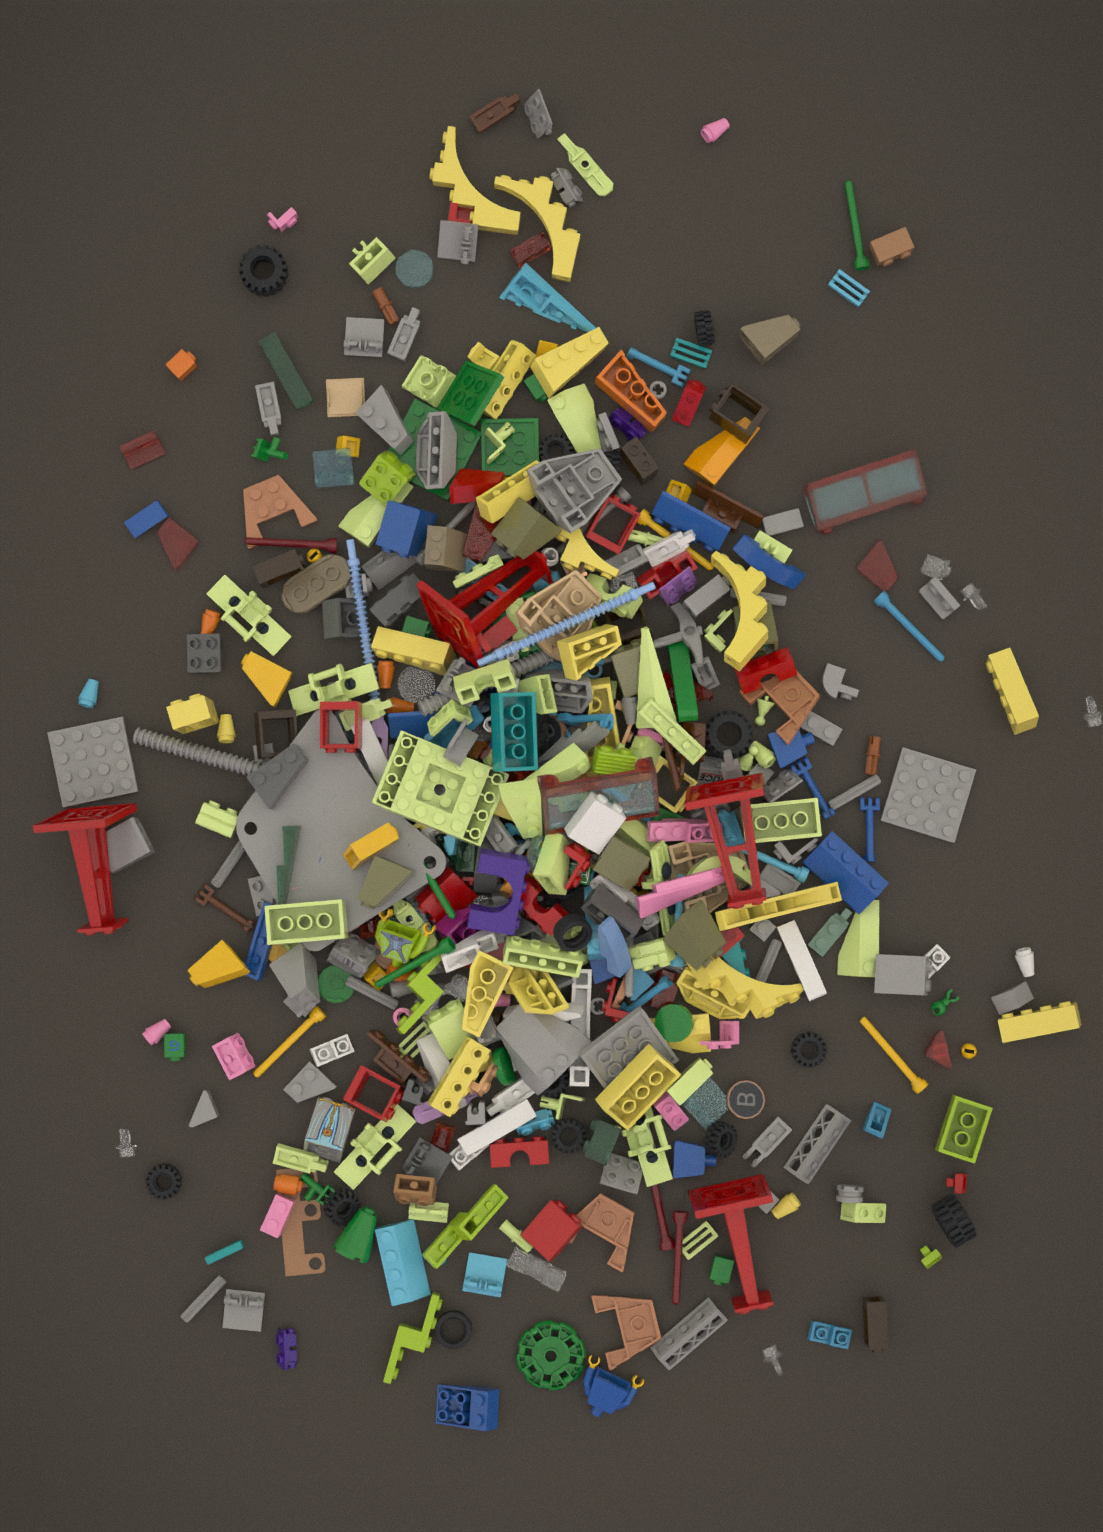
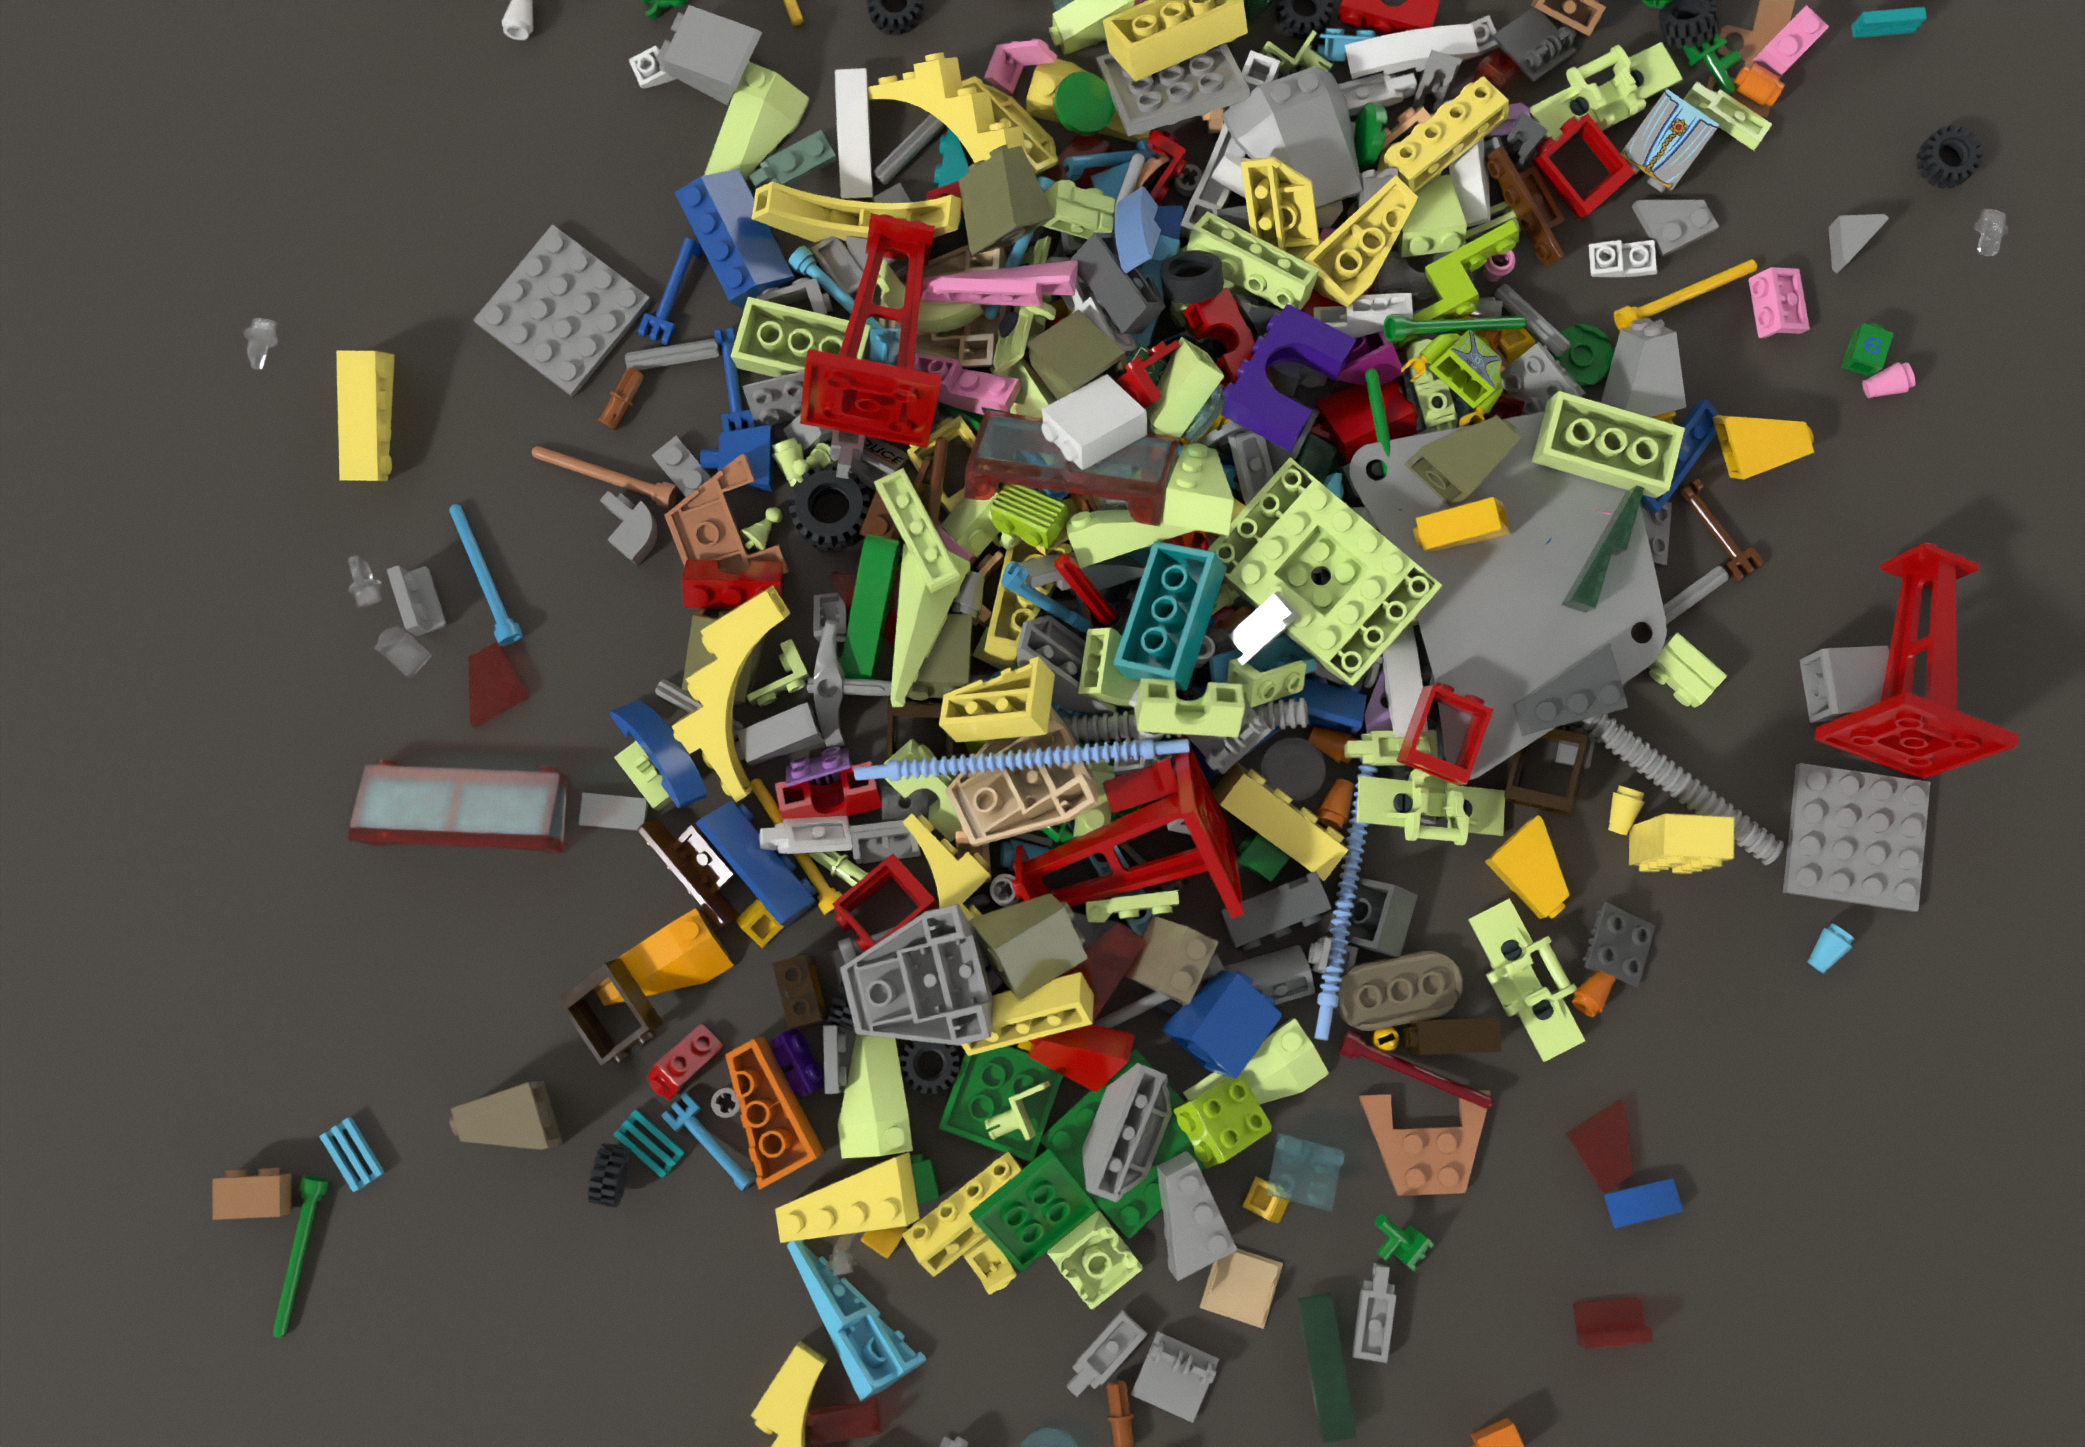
camera: 155 degrees left, 5 degrees down
(564, 330) = (841, 1260): none -> clear plate
(566, 733) = (1085, 589): none -> red axle
(828, 709) = (663, 494): none -> nougat piece

